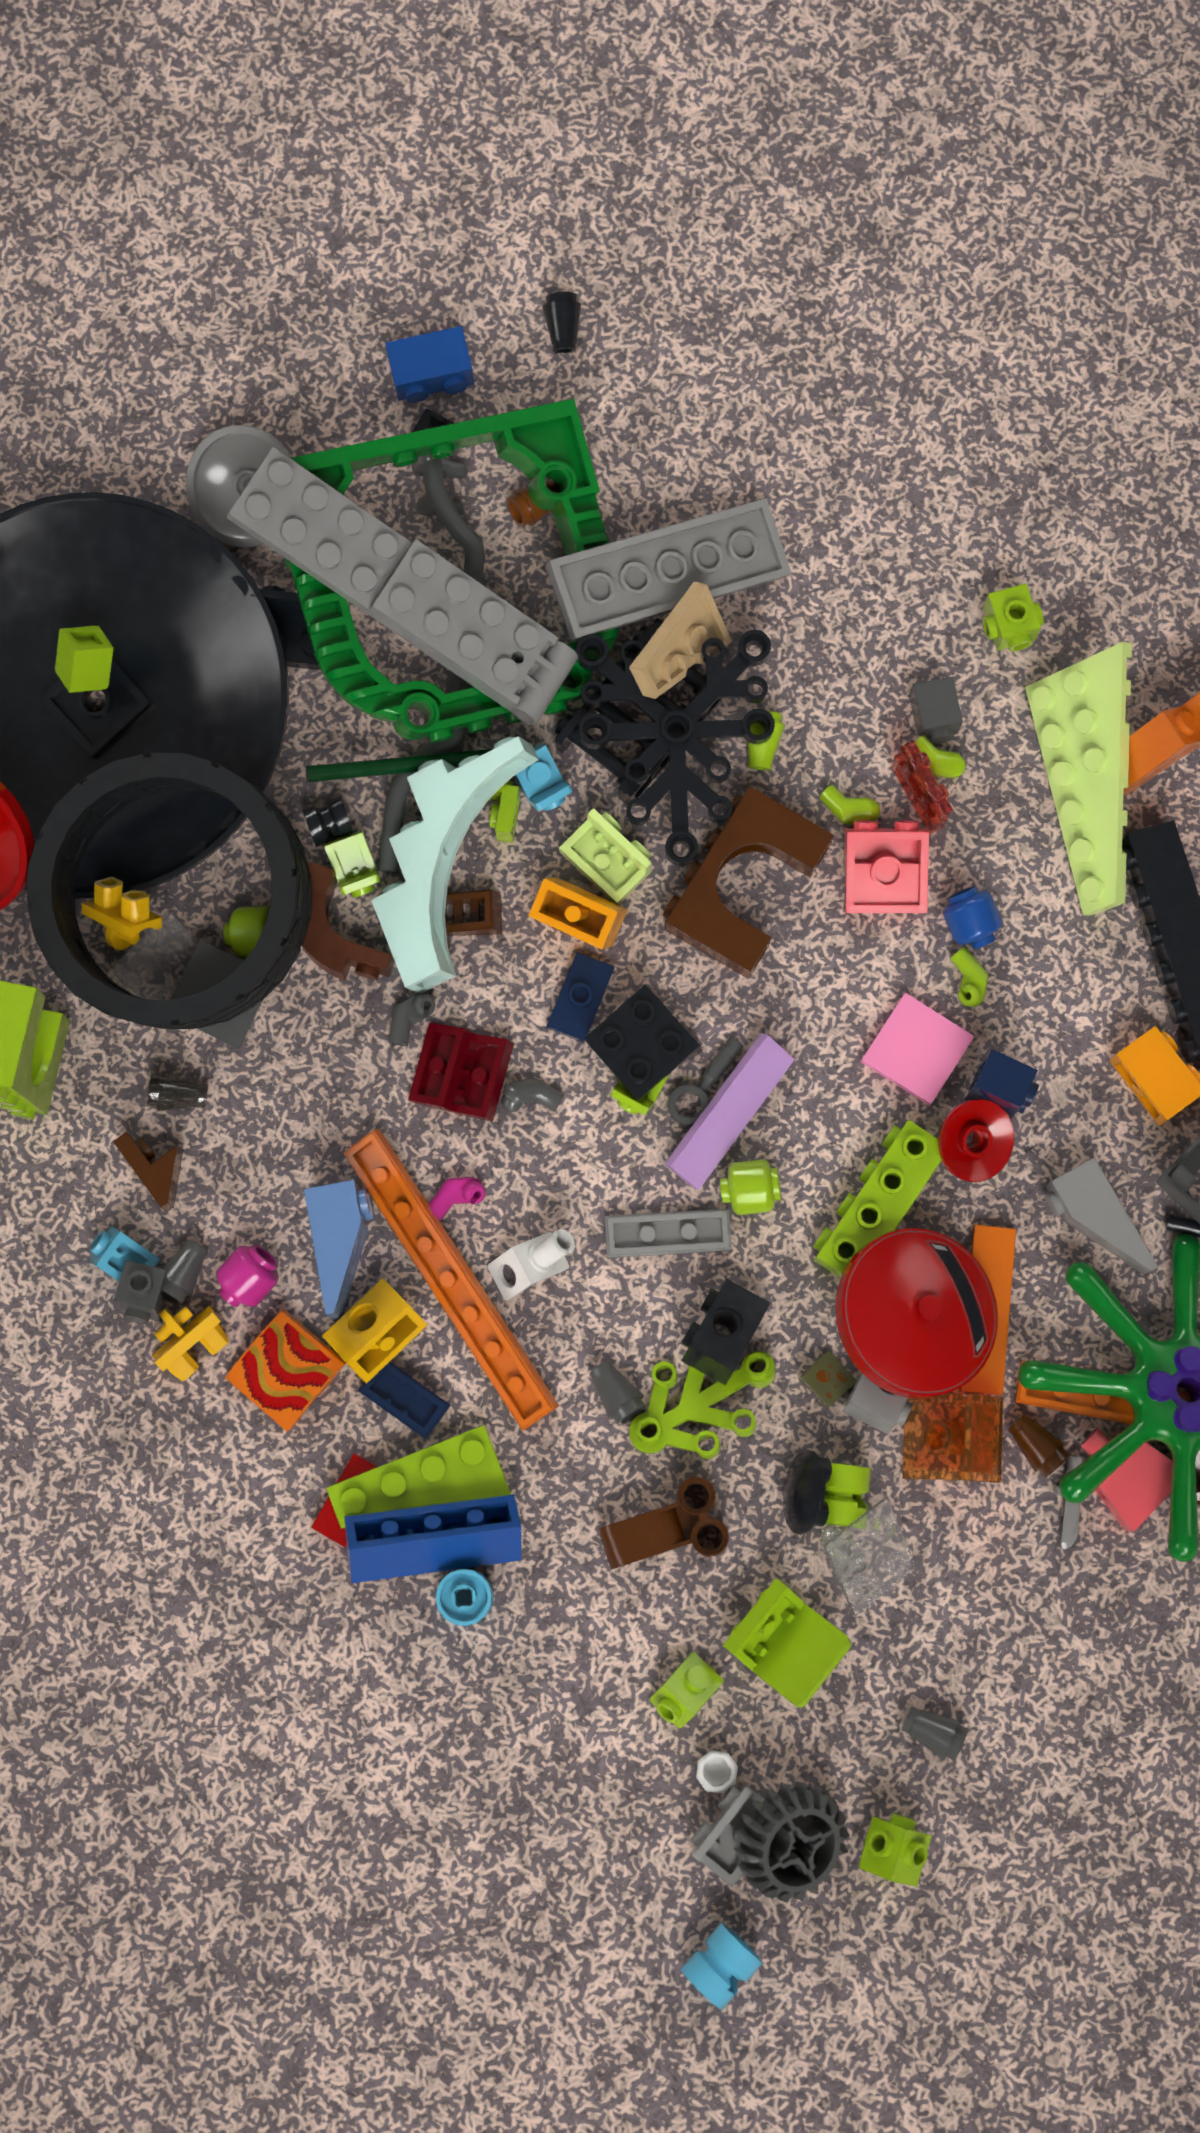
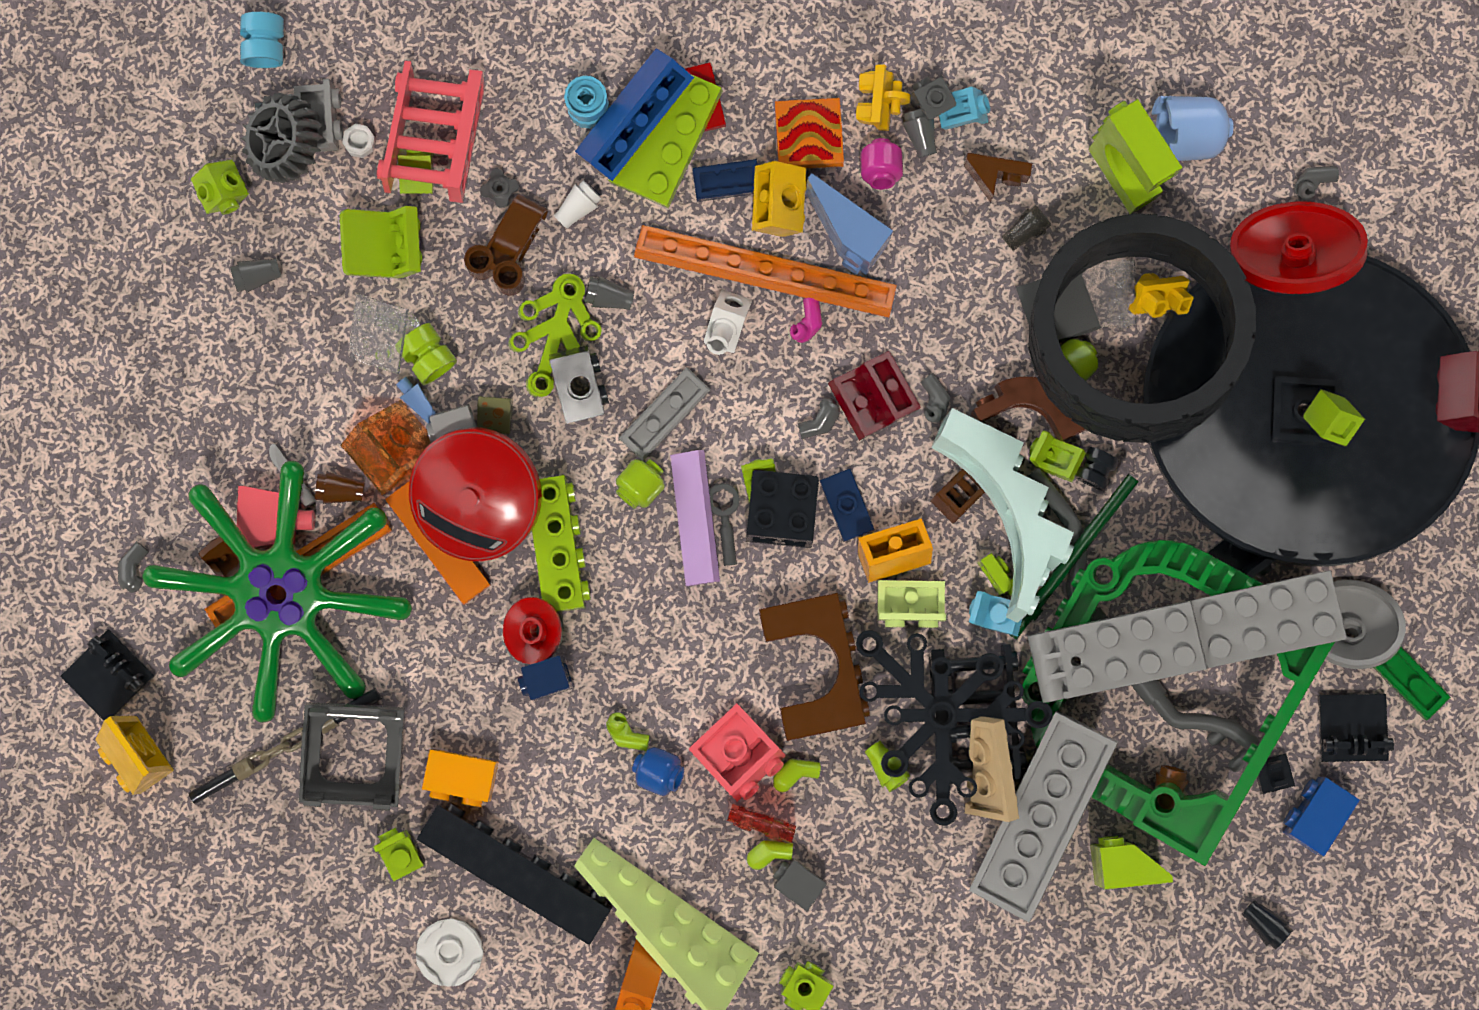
camera: 135 degrees right, 5 degrees up
(240, 393) = (1413, 684): none -> green tile
(327, 408) = (1354, 728): none -> black hinge
(564, 1507) = (577, 204): none -> white cone
(630, 1583) = (502, 197): none -> flat silver plate
(633, 1665) = (458, 150): none -> coral fence
(641, 466) = (1124, 865): none -> lime slope
(805, 1492) = (447, 334): black dish -> none
(888, 1462) = (415, 399): none -> medium blue piece
(917, 1049) = (618, 660): bright pink tile -> none
(1095, 1210) = (428, 657): light grey slope -> none

